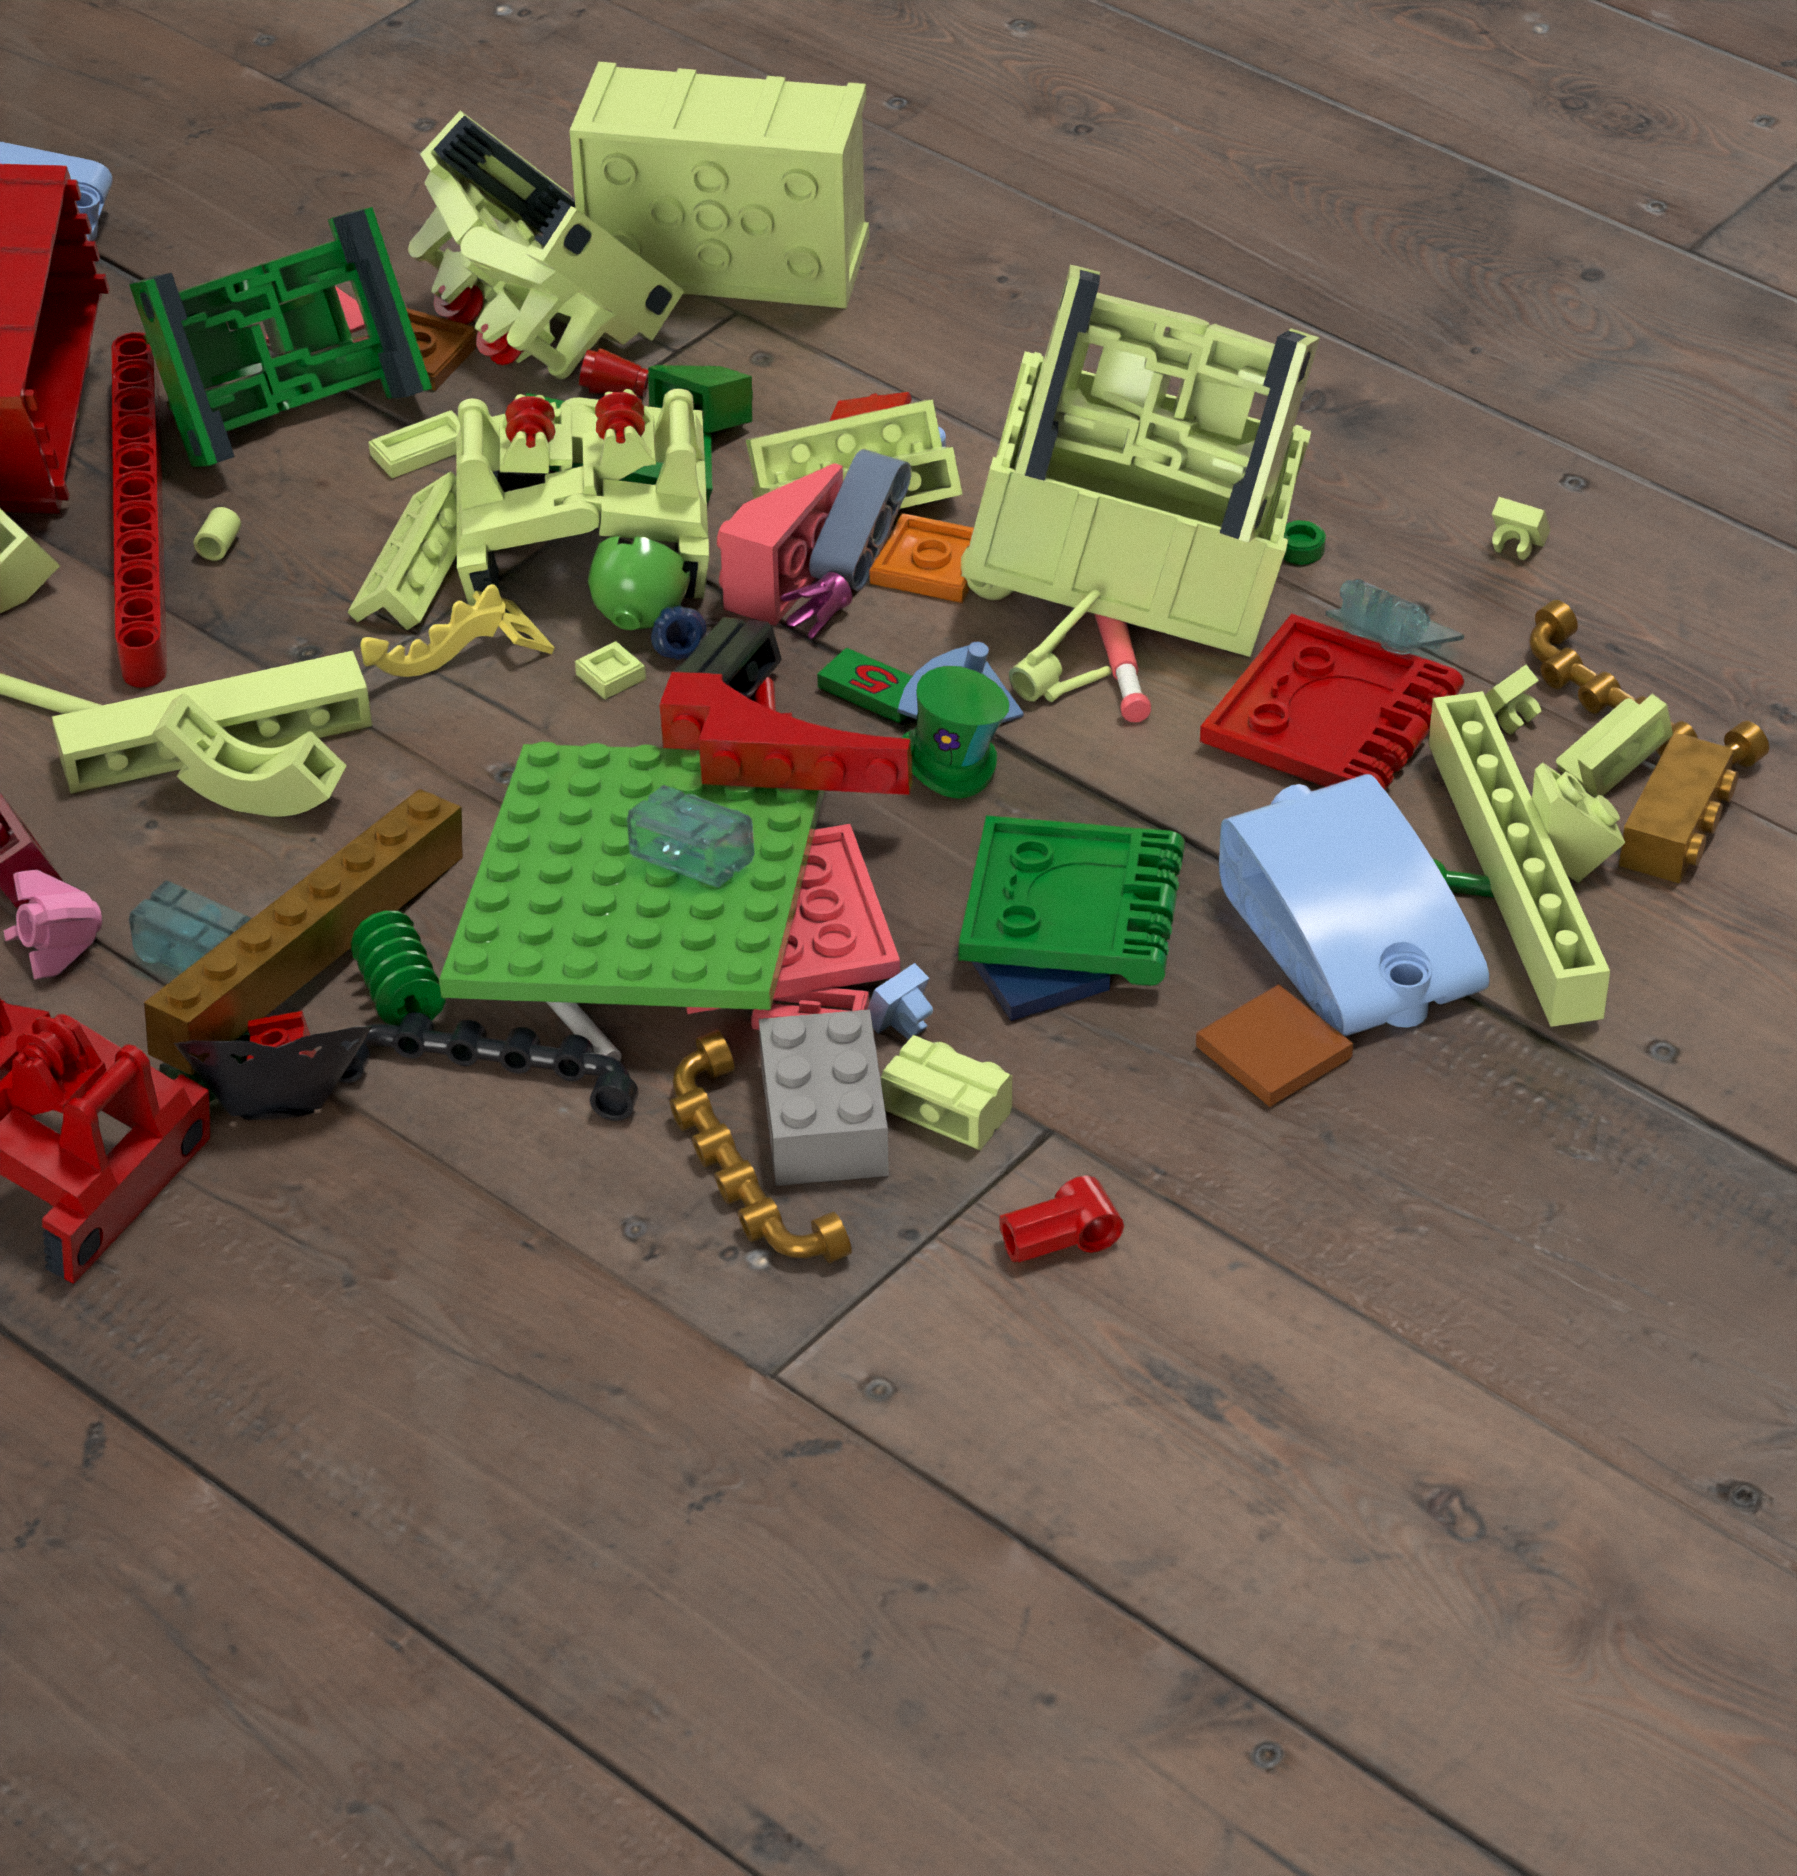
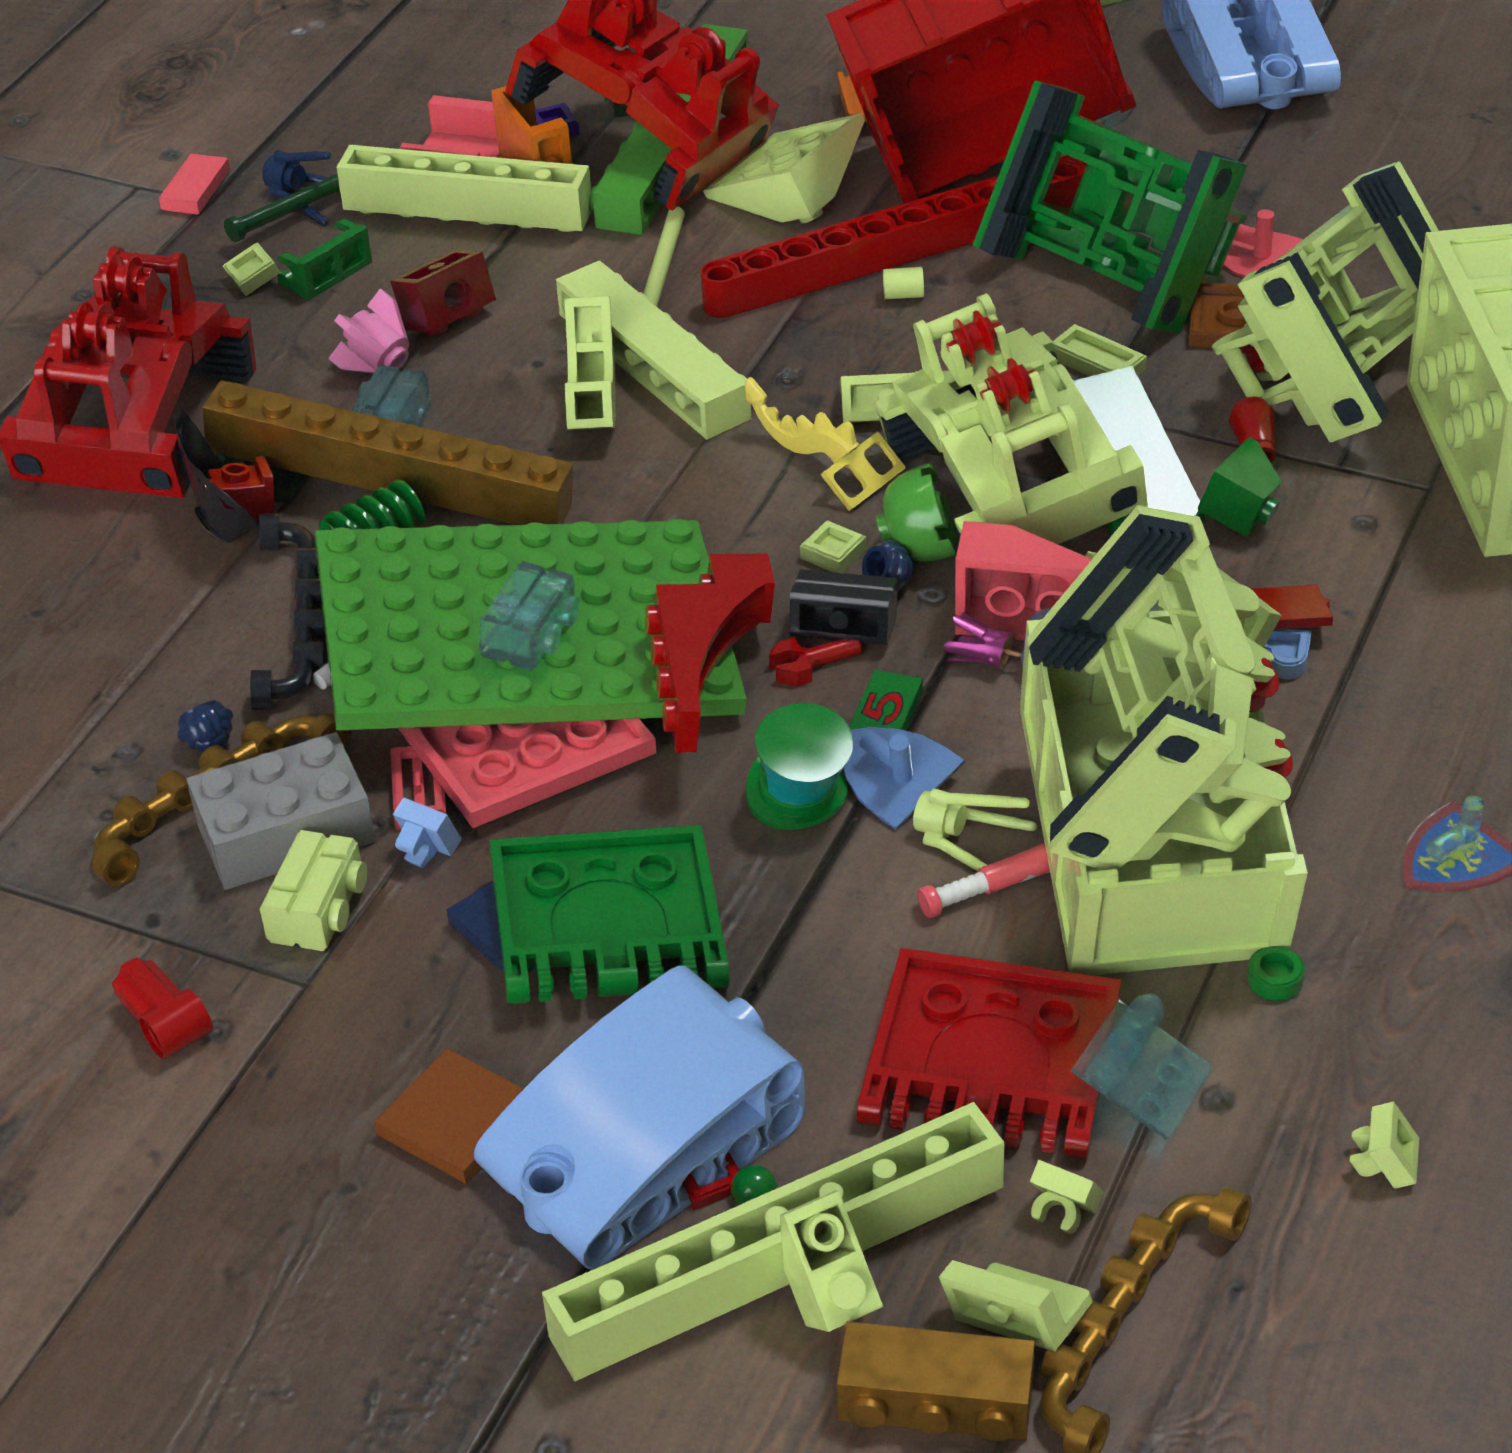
camera: 75 degrees right, 0 degrees up
(654, 1142) = (206, 726): none -> dark blue piece

